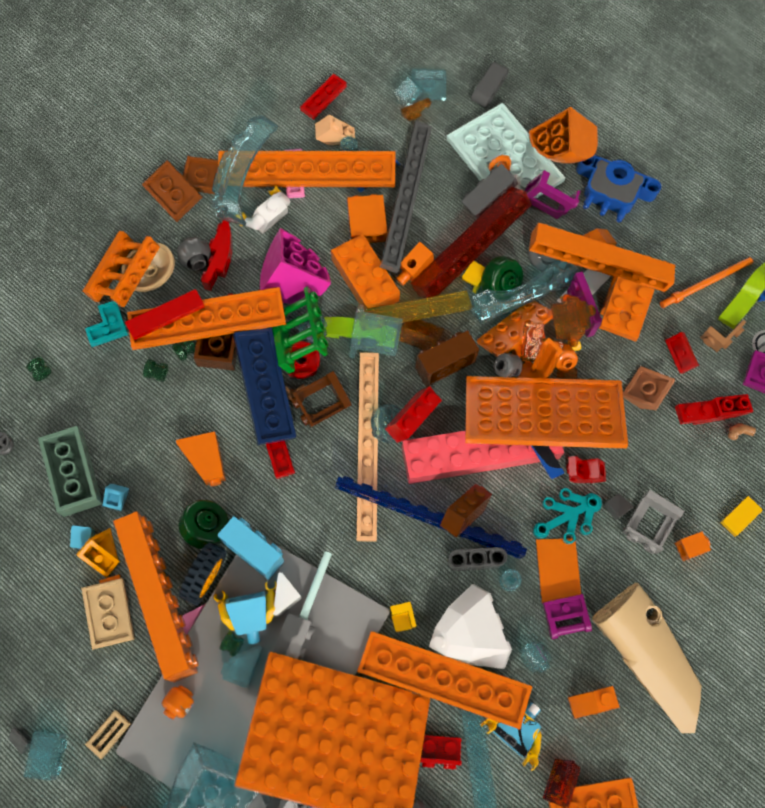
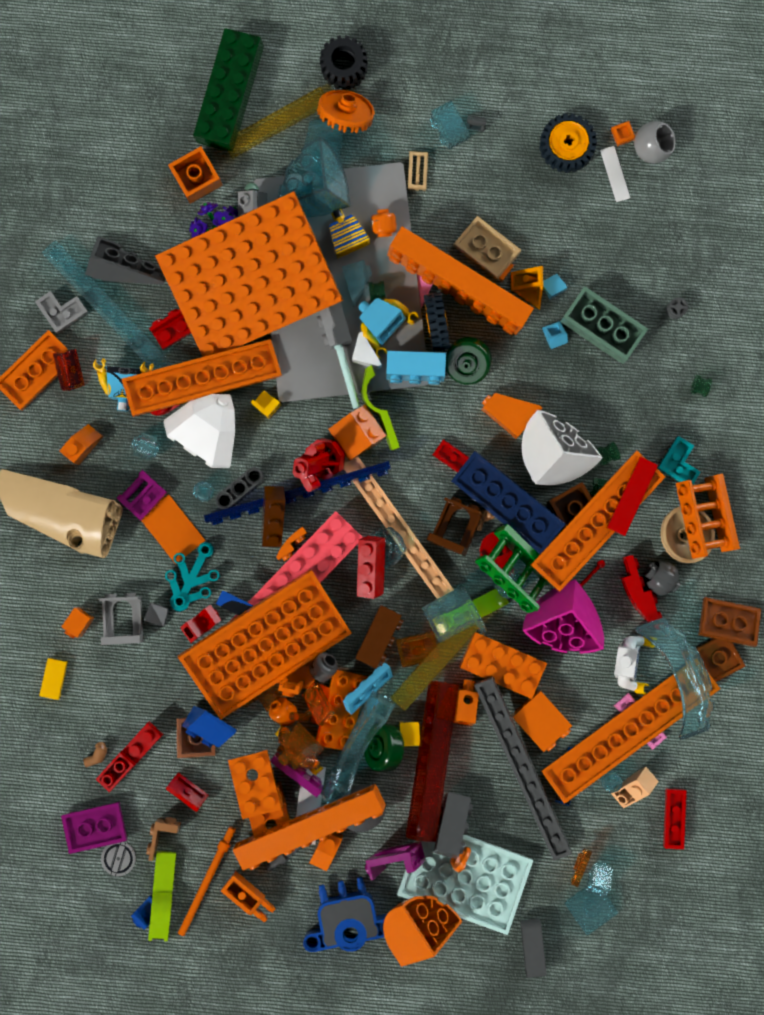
camera: 150 degrees right, 15 degrees up
(194, 400) = (555, 451): none -> white brick
(217, 719) = (347, 234): none -> torso
(298, 572) = (382, 414): none -> lime piece
(343, 531) = (357, 432): none -> orange slope
(395, 526) = (315, 462): none -> red piece
(457, 484) = (287, 548): none -> orange slope
(483, 329) = (362, 693): none -> medium azure plate
(635, 384) = (208, 727): none -> blue slope
(683, 249) = (246, 896): none -> orange hinge

